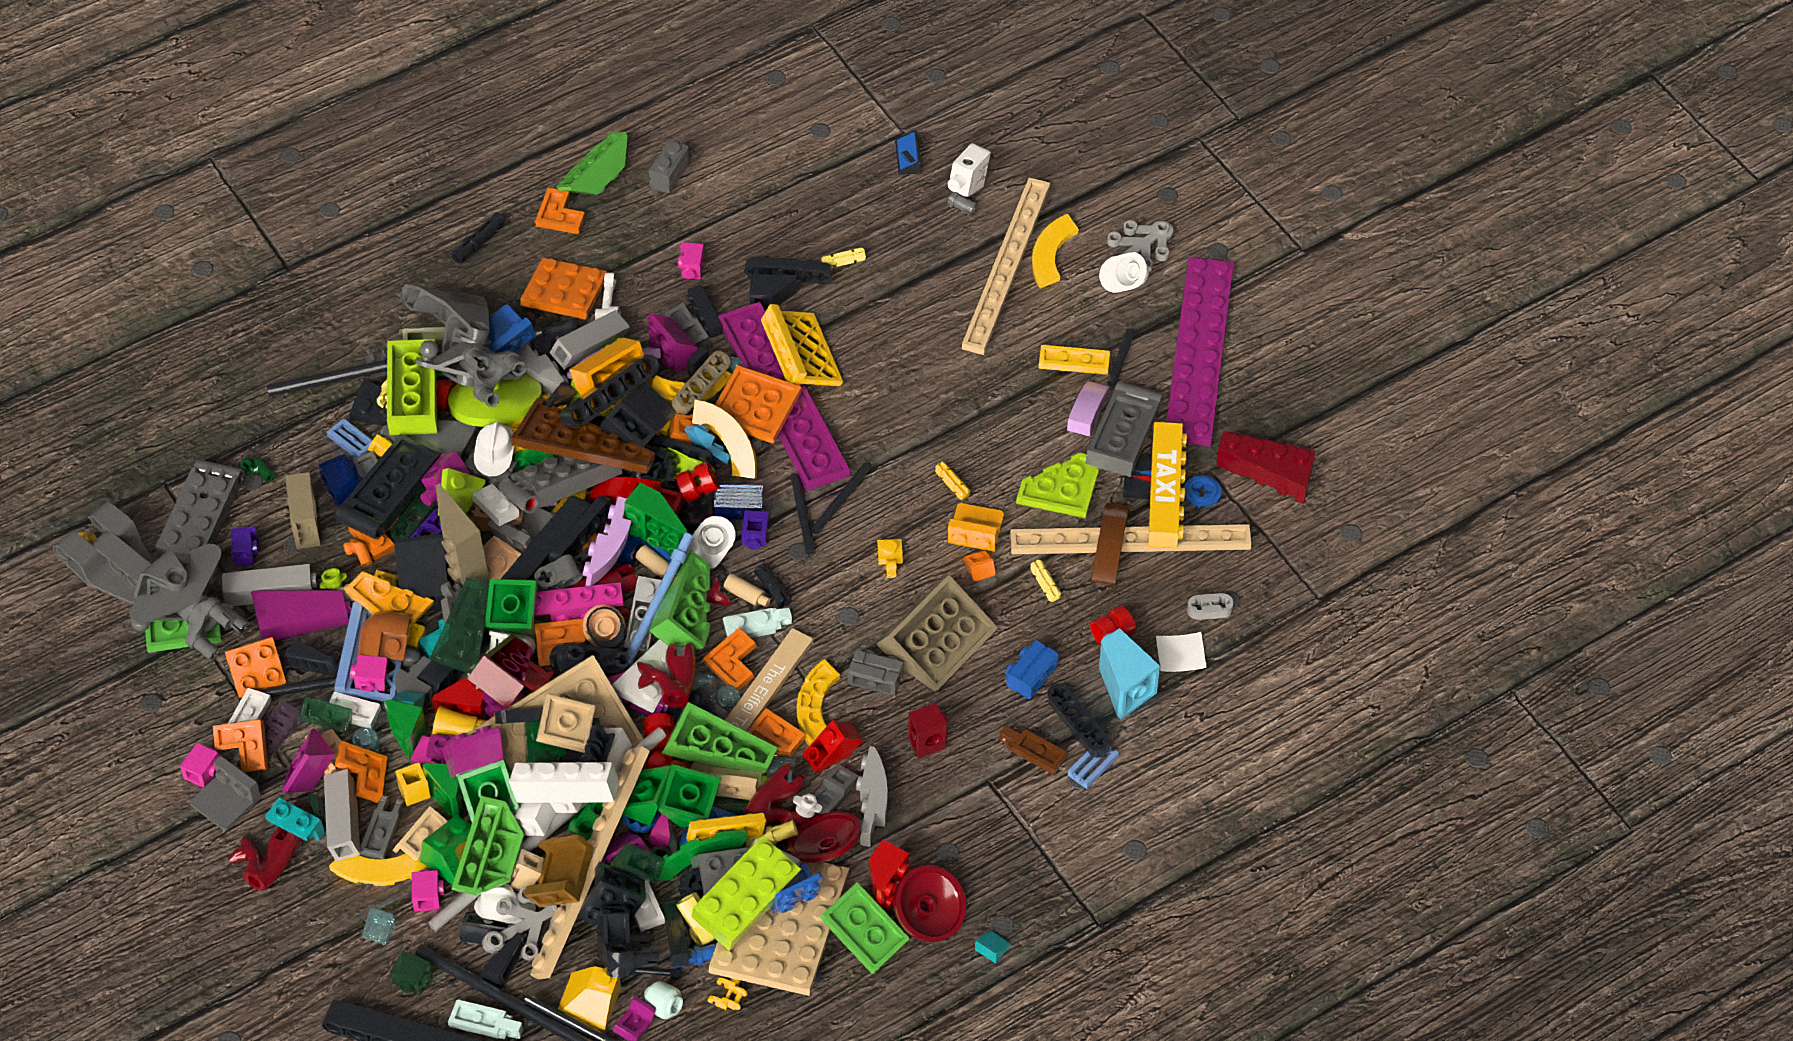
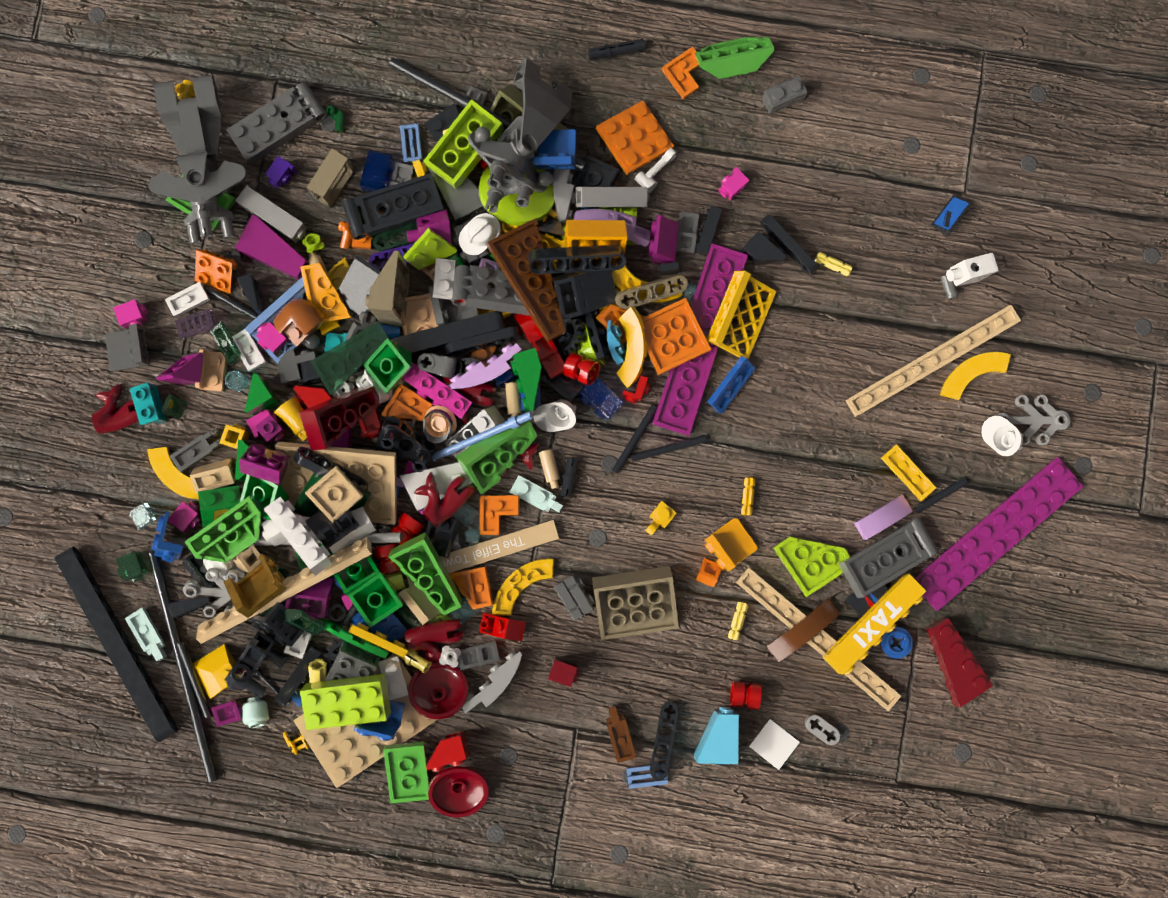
camera: 40 degrees right, 30 degrees up
(250, 740) = (168, 321): orange plate -> none
(341, 815) = (178, 423): light grey brick -> none
(369, 767) = (221, 403): orange plate -> none
(411, 698) = (274, 379): teal slope -> none
(428, 919) = (166, 550): none -> blue bracket
(755, 533) = (596, 422): dark purple brick -> none
(768, 470) = (642, 388): none -> red bracket
(847, 407) = (731, 385): none -> blue plate
(992, 946) = (475, 845): teal slope -> none
(1031, 669) = (669, 679): blue brick -> none

